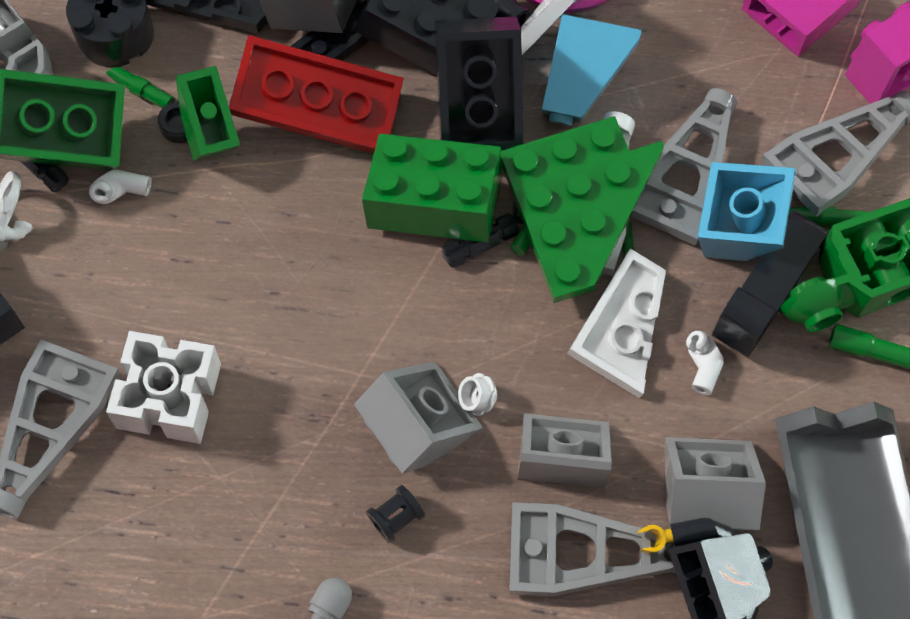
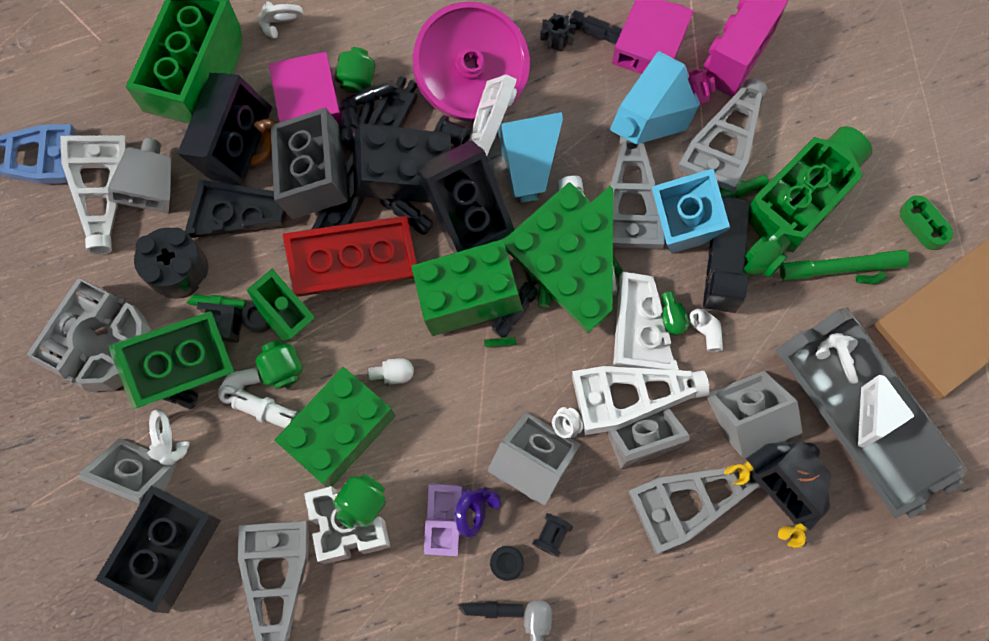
camera: 20 degrees left, 5 degrees up
(134, 227) = (263, 409): none -> white pin
(139, 110) = (226, 318): none -> black panel
(174, 183) = (279, 364): none -> green head
(185, 363) = (359, 501): none -> green head
(204, 279) = (335, 427): none -> green brick
(277, 440) = (440, 525): none -> lavender slope
(283, 567) = (492, 609): none -> black piece
(301, 247) = (393, 371): none -> white cylinder
(326, 437) = (477, 502): none -> dark purple piece
(326, 523) = (506, 563): none -> black tile
(413, 83) = (403, 208): none -> black axle
(445, 267) = (500, 341): none -> green leg
(523, 382) = (596, 402): none -> white plate
(670, 327) = (674, 315): none -> green cylinder
(767, 69) = (657, 103): none -> medium azure slope
(830, 74) = (701, 84): none -> dark pink gear
(862, 454) = (844, 346): none -> white piece
(872, 549) = (880, 411): none -> white slope

